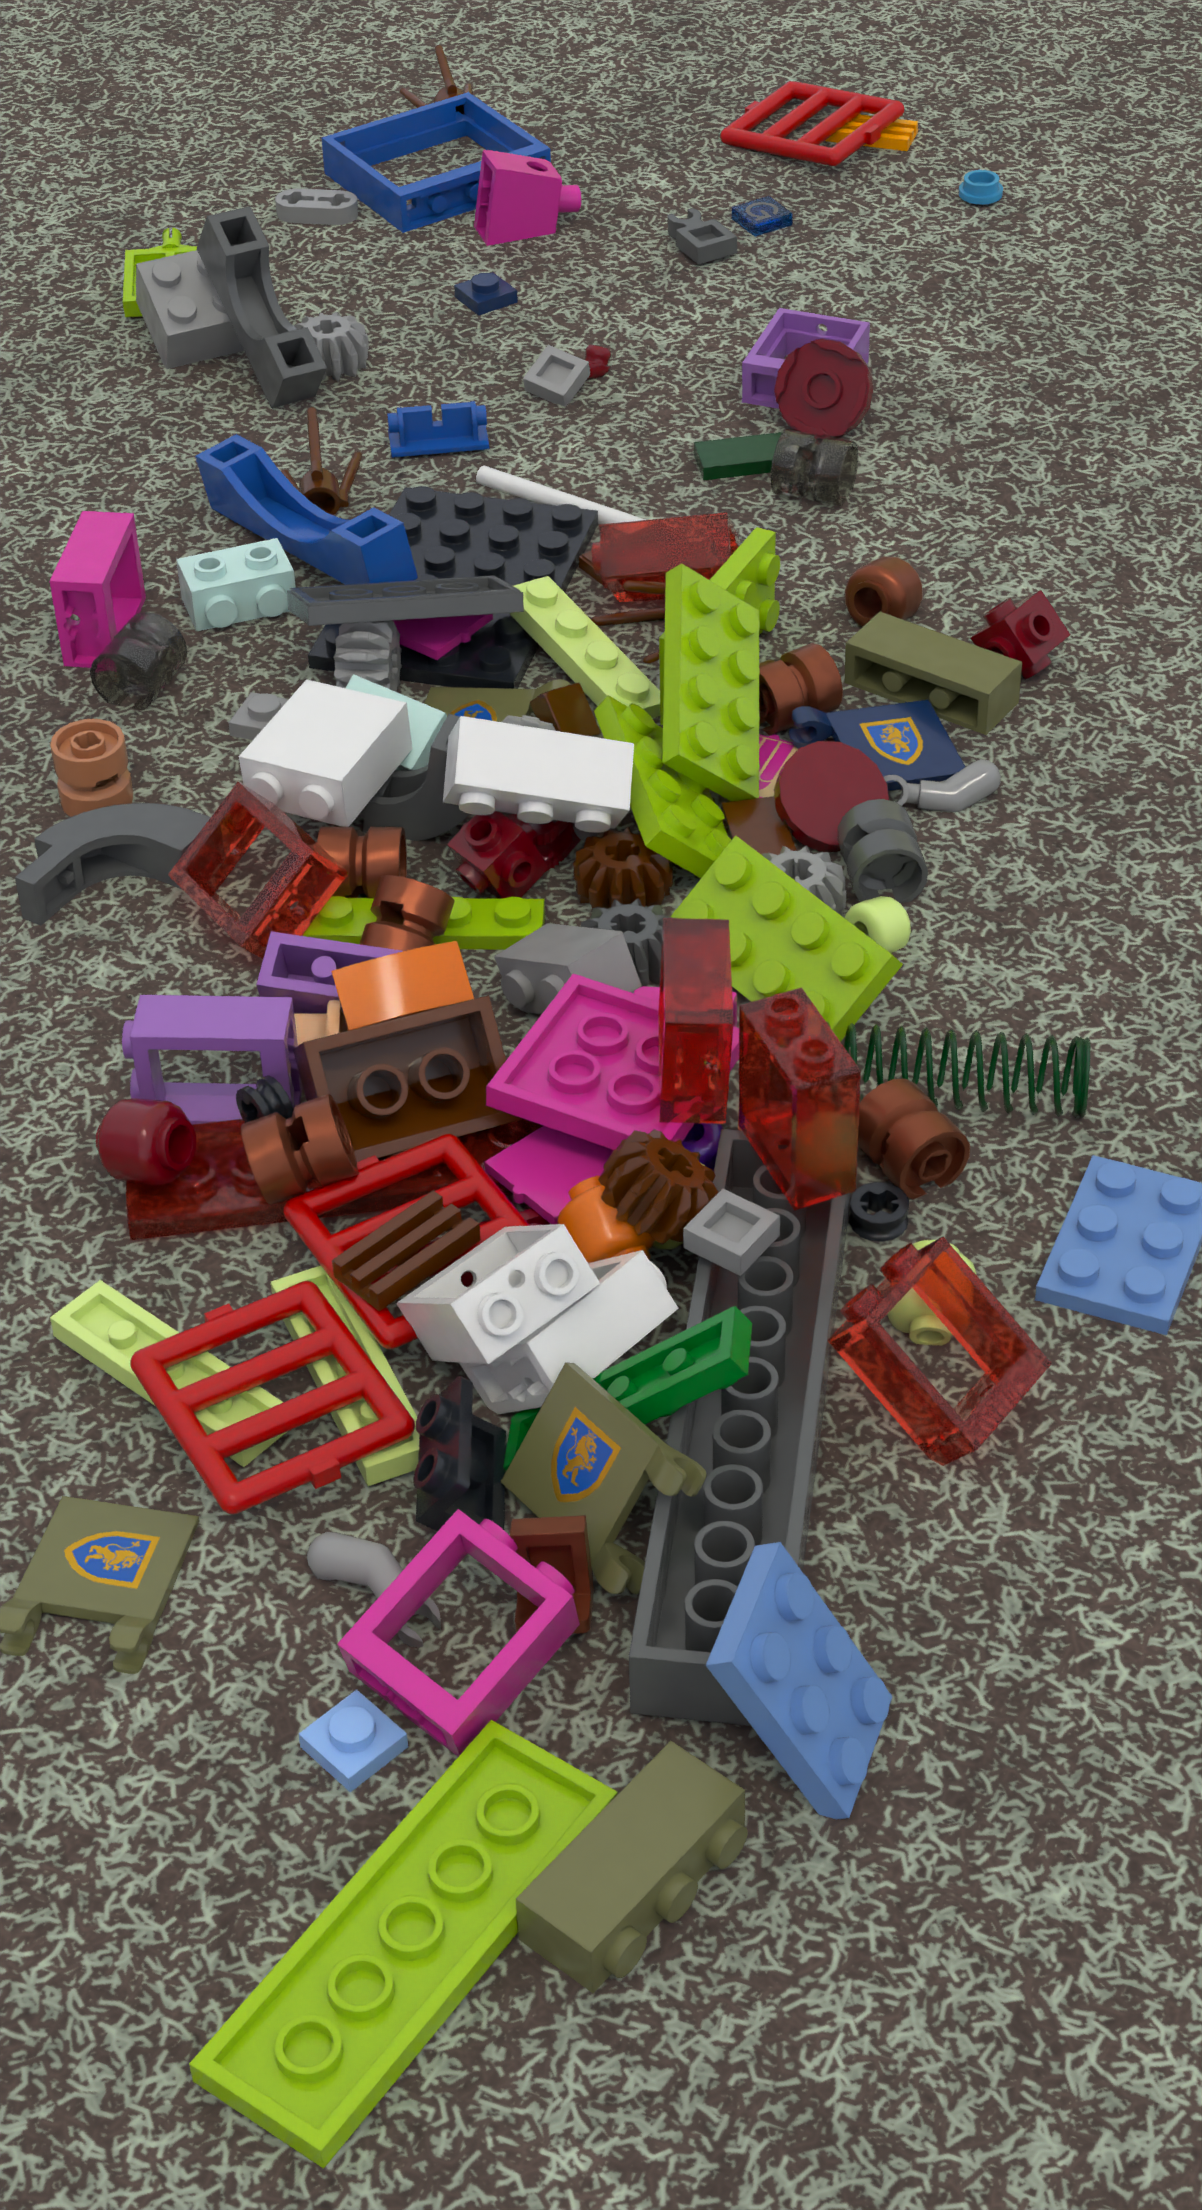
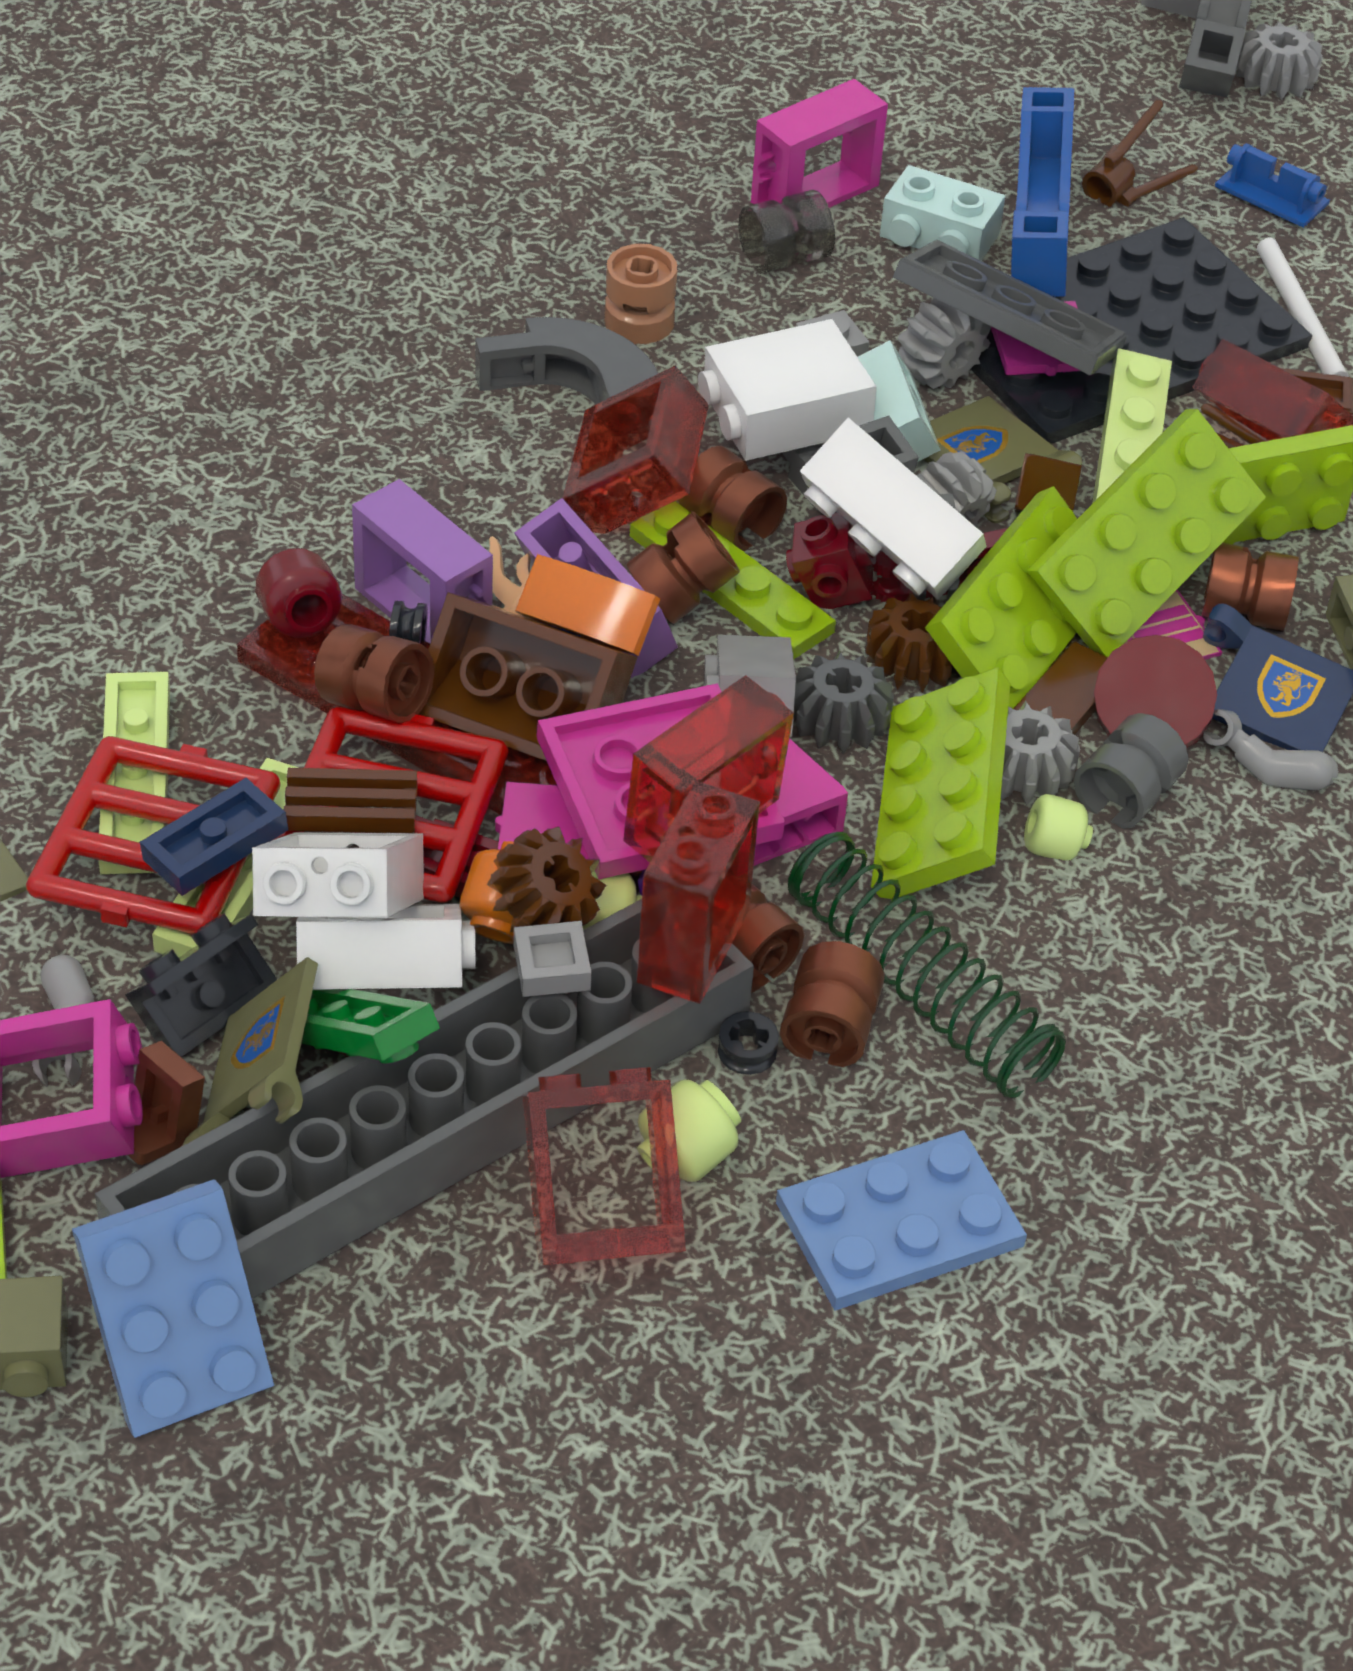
camera: 40 degrees right, 5 degrees up
(347, 1348) = (213, 836): none -> dark blue plate

